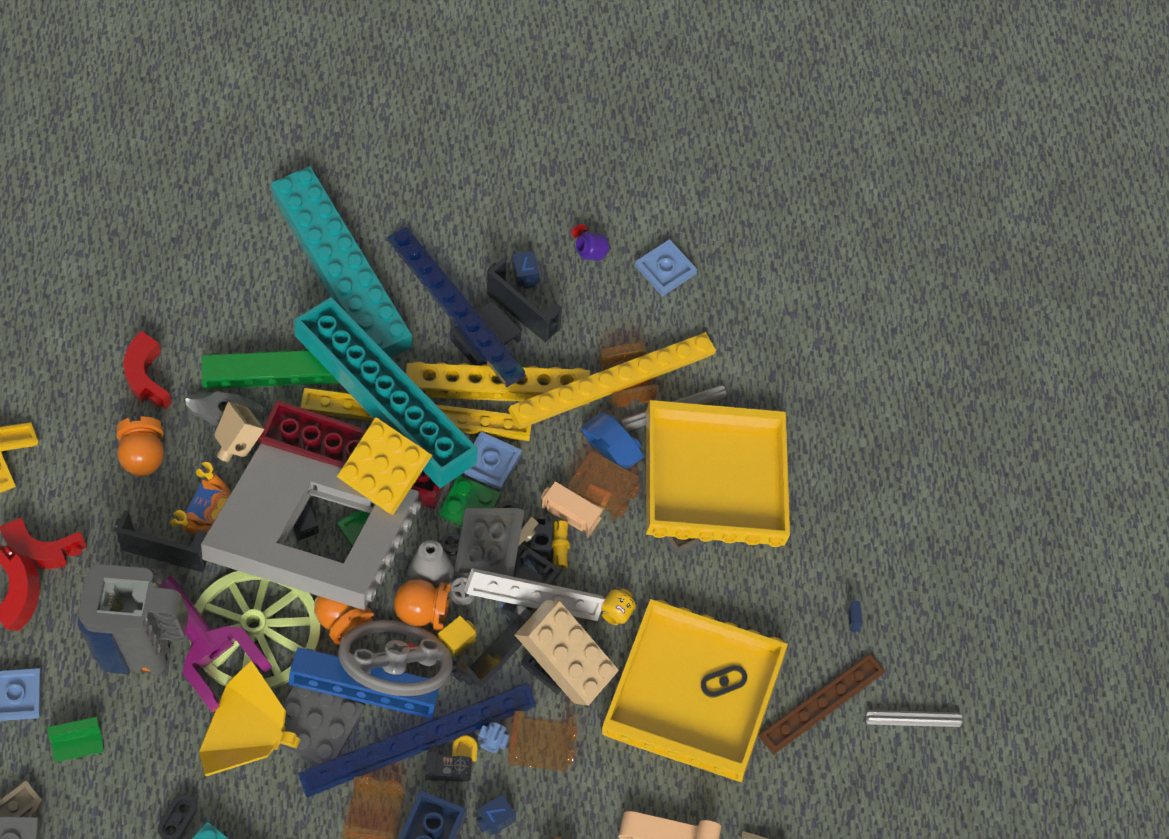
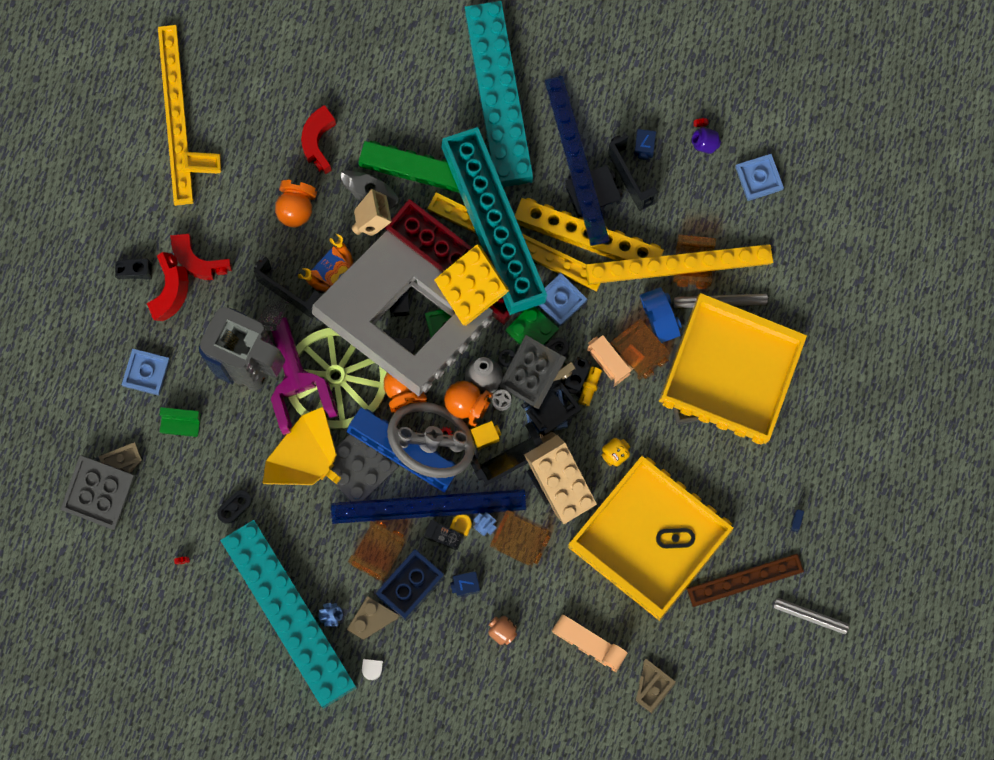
camera: 25 degrees right, 15 degrees up
(532, 593) = (552, 425): white plate -> none

